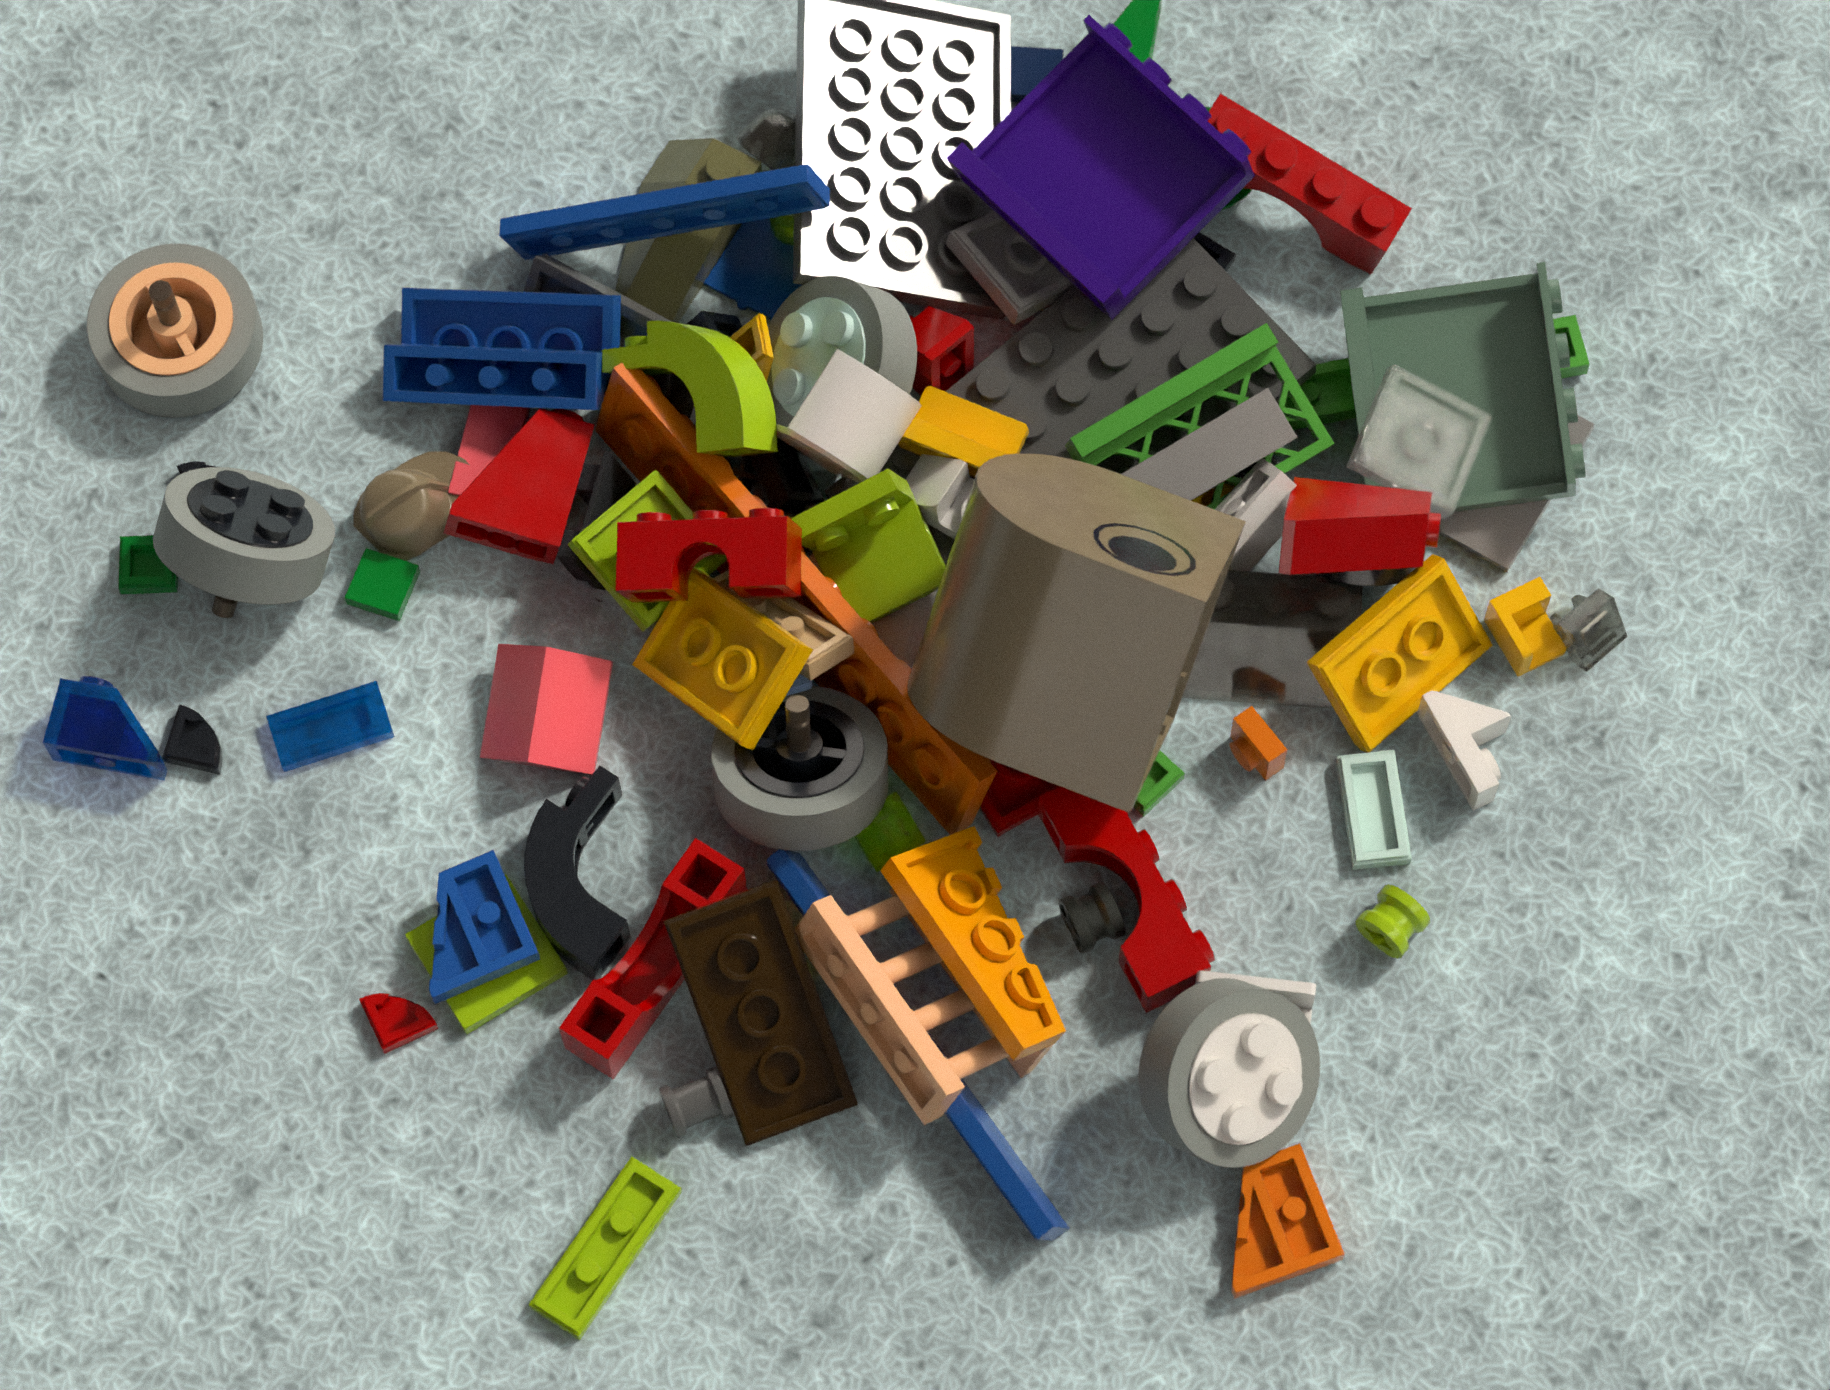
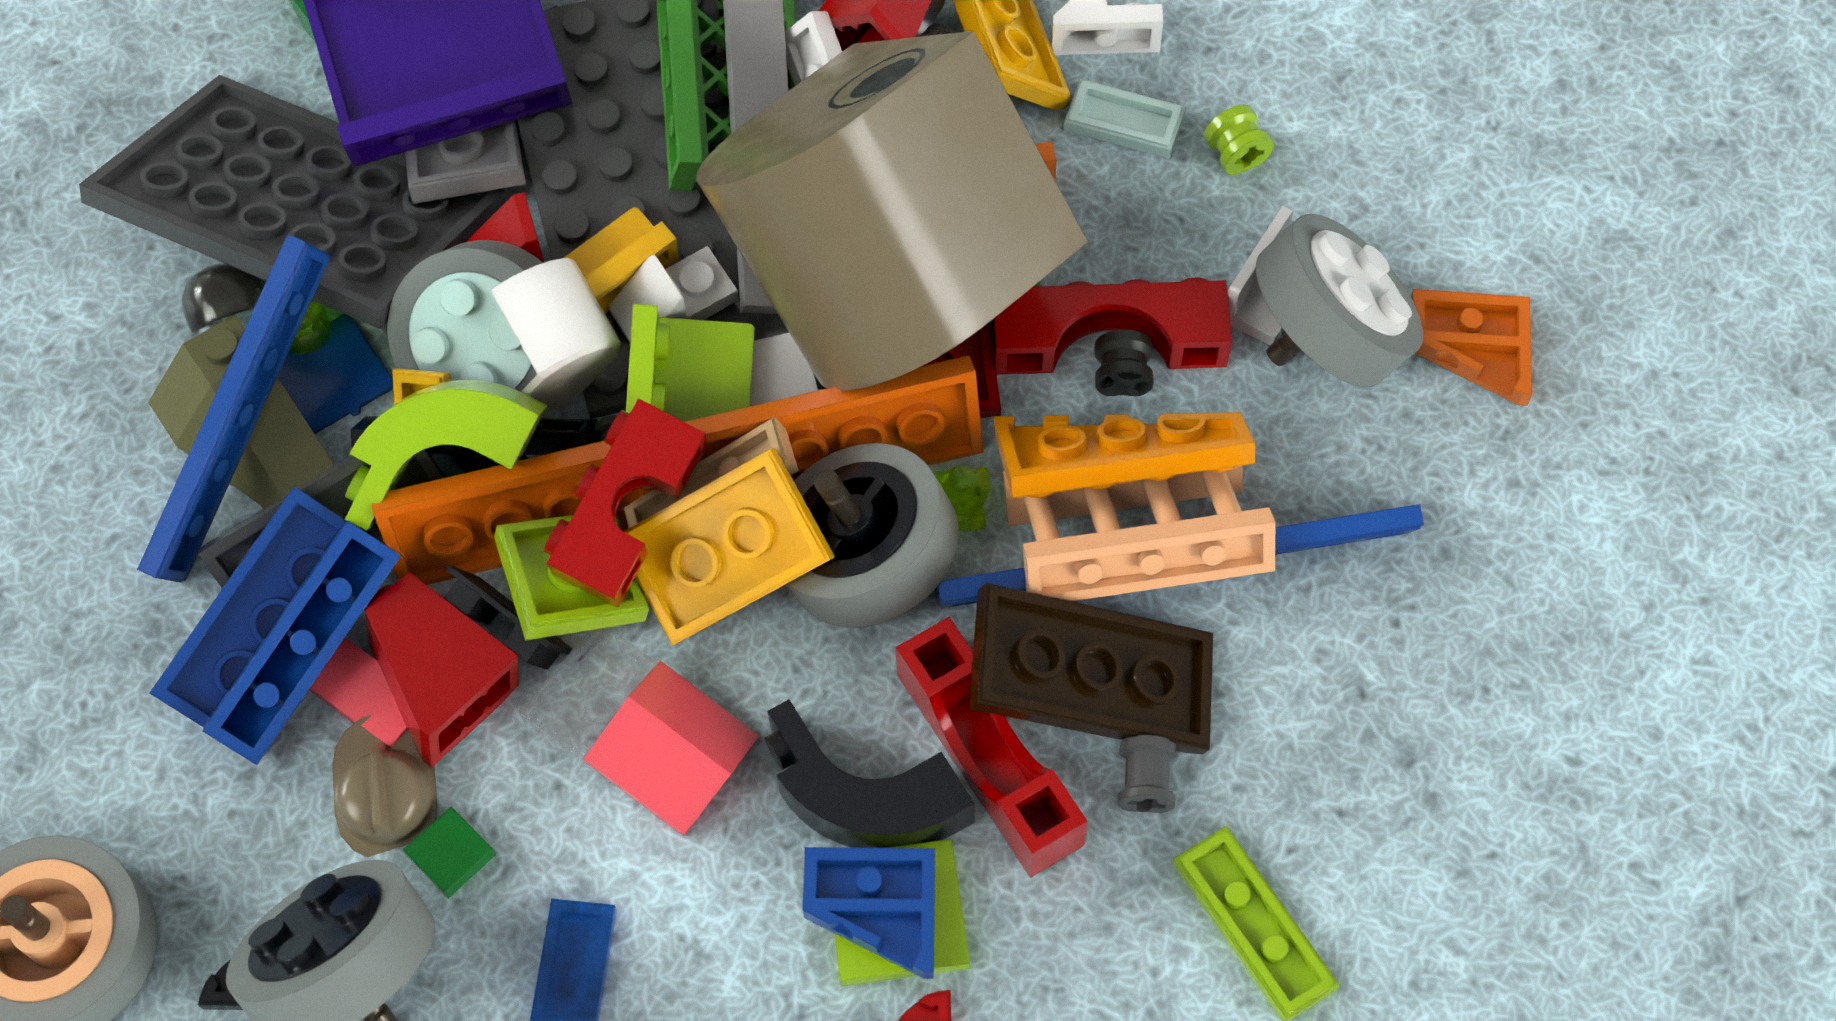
camera: 65 degrees left, 5 degrees down
(1029, 68) = (290, 80): dark blue tile -> none

